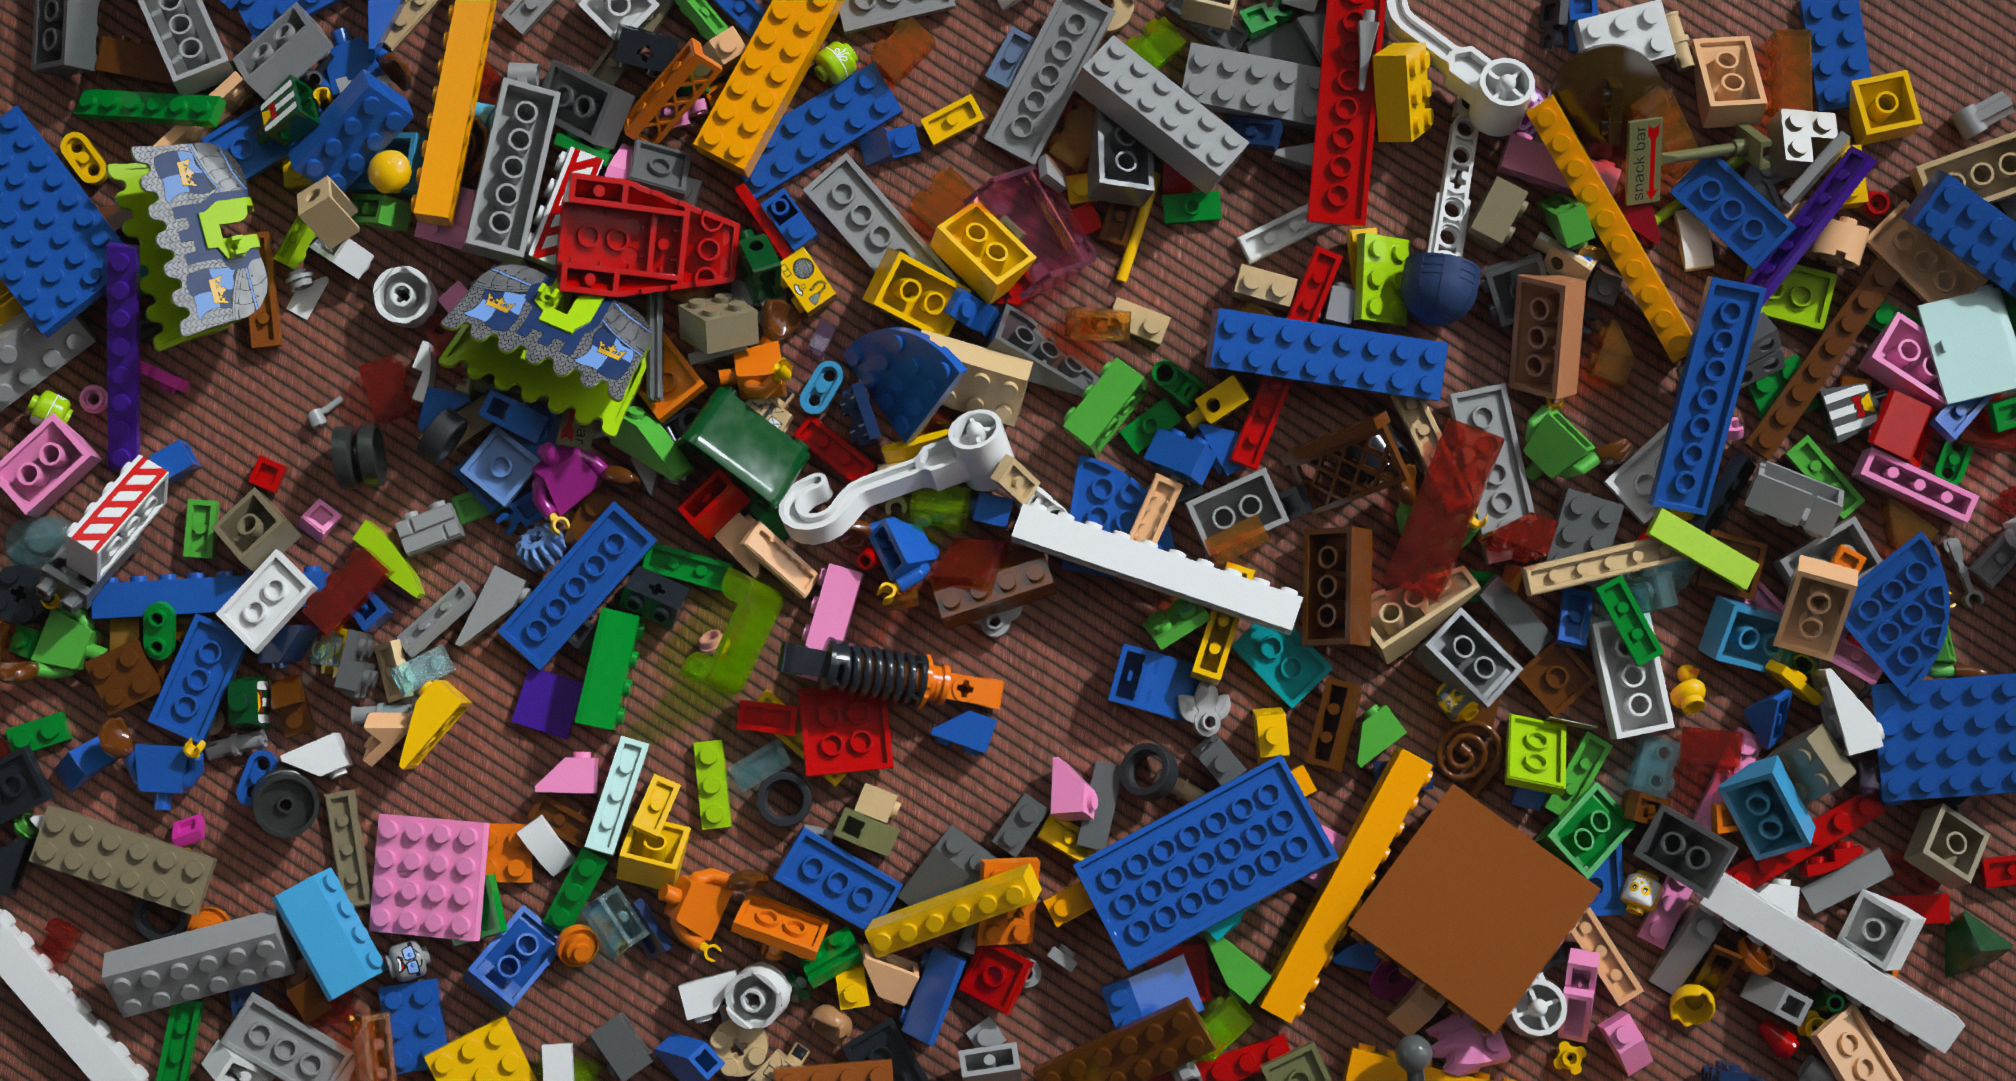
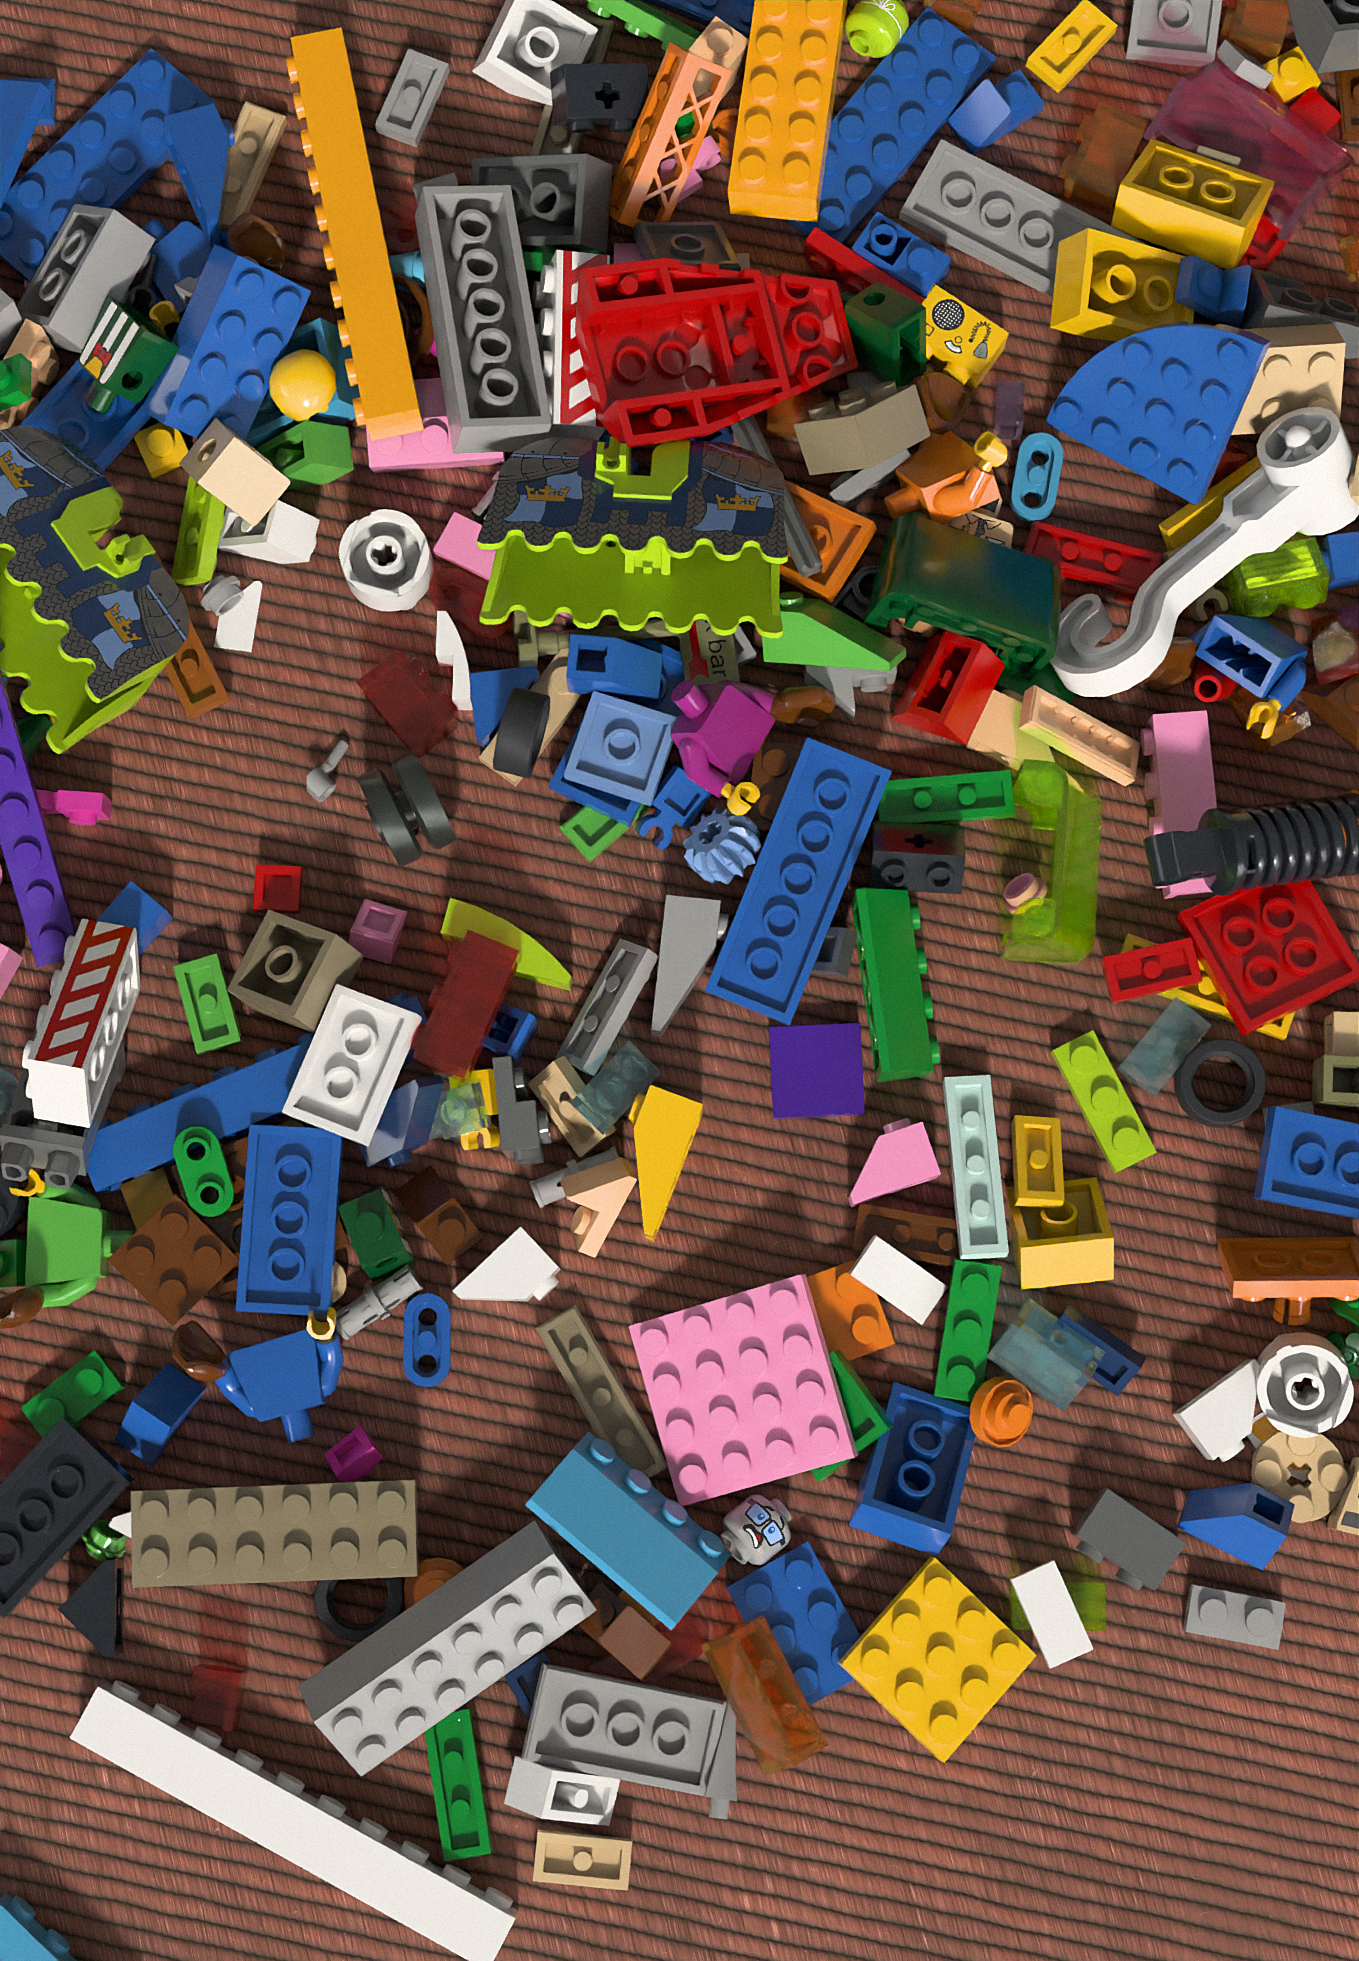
camera: 20 degrees left, 5 degrees down
(281, 785) = (512, 1354): pearl dark grey wheel -> none
(429, 529) = (547, 880): light grey brick -> none
(700, 901) = (1161, 1273): orange torso -> none
(858, 406) = (1117, 488): dark blue plate -> none

